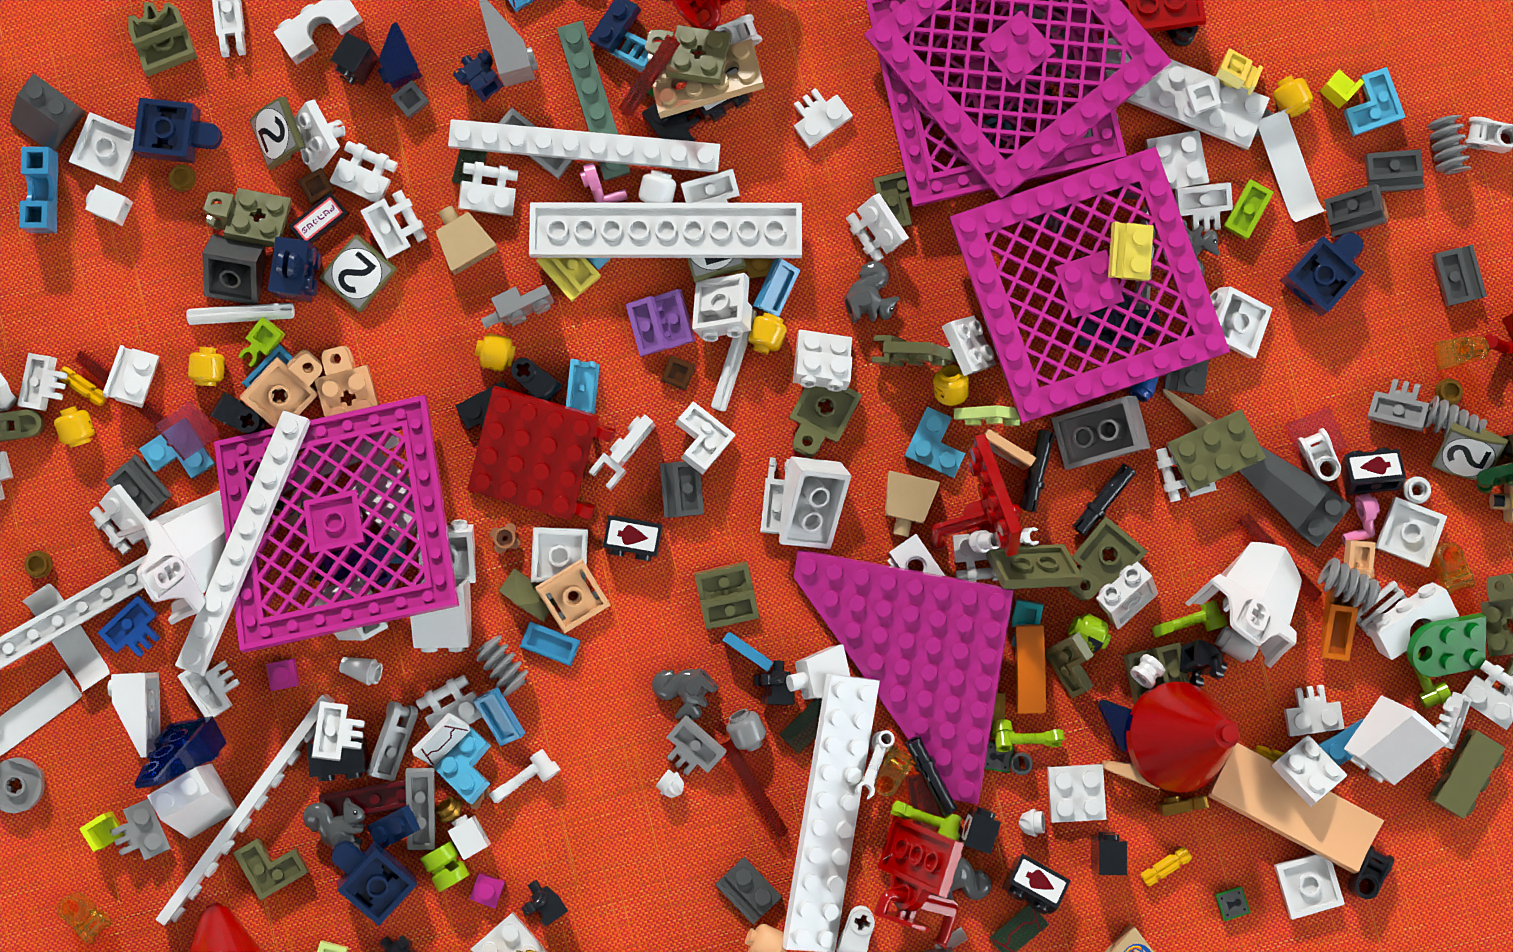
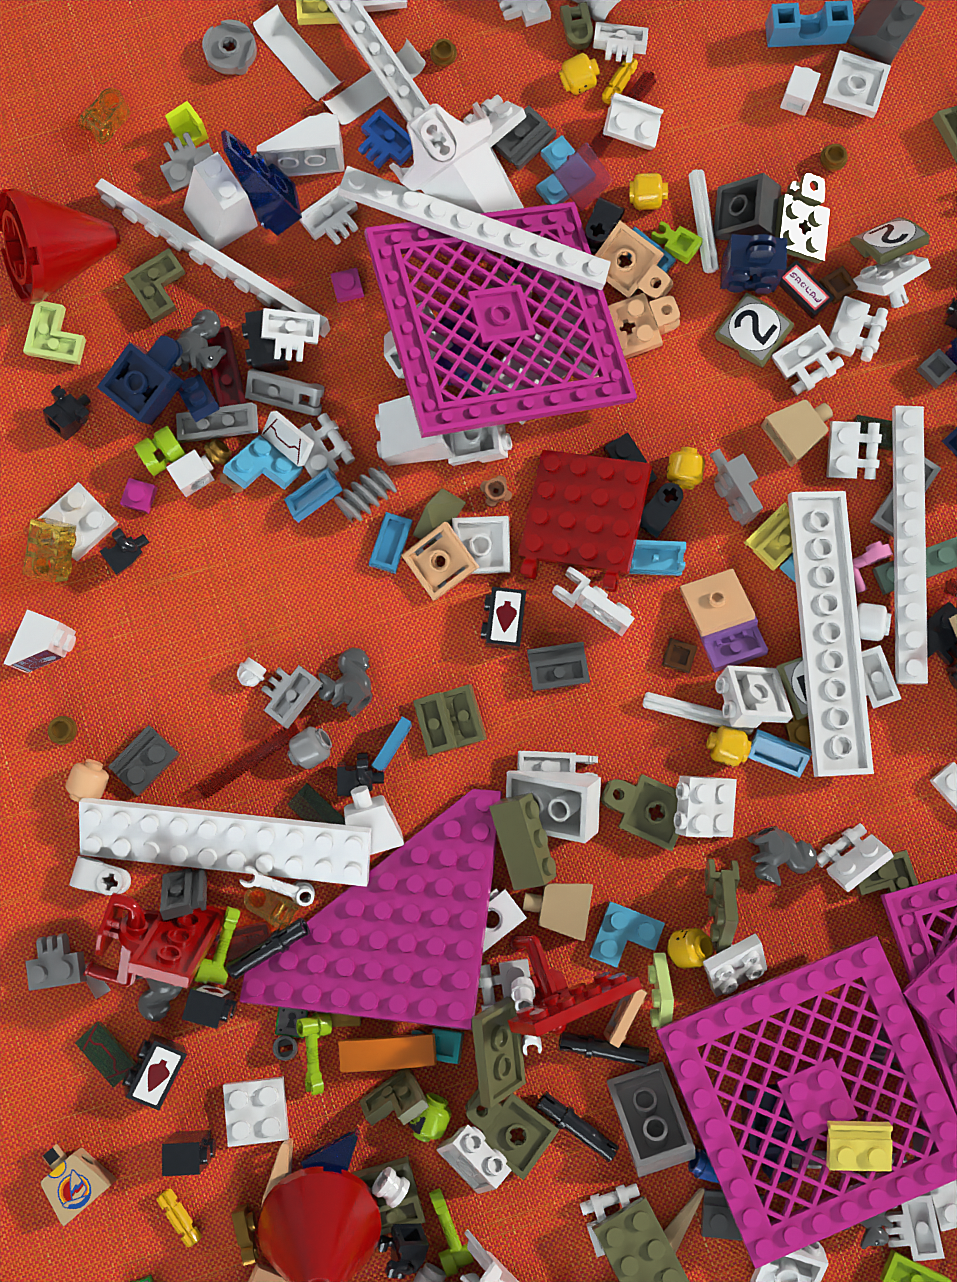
camera: 85 degrees right, 5 degrees down
(172, 131) = (881, 141): dark blue brick -> none
(362, 669) = (355, 359): white cone -> none
(540, 765) = (265, 540): white brick -> none
(629, 333) = (717, 602): none -> light nougat plate
(709, 435) = (615, 691): white plate -> none
(845, 532) = (523, 841): none -> olive brick
(875, 853) = (183, 892): none -> dark grey plate
(1032, 822) = (221, 1063): white plate -> none

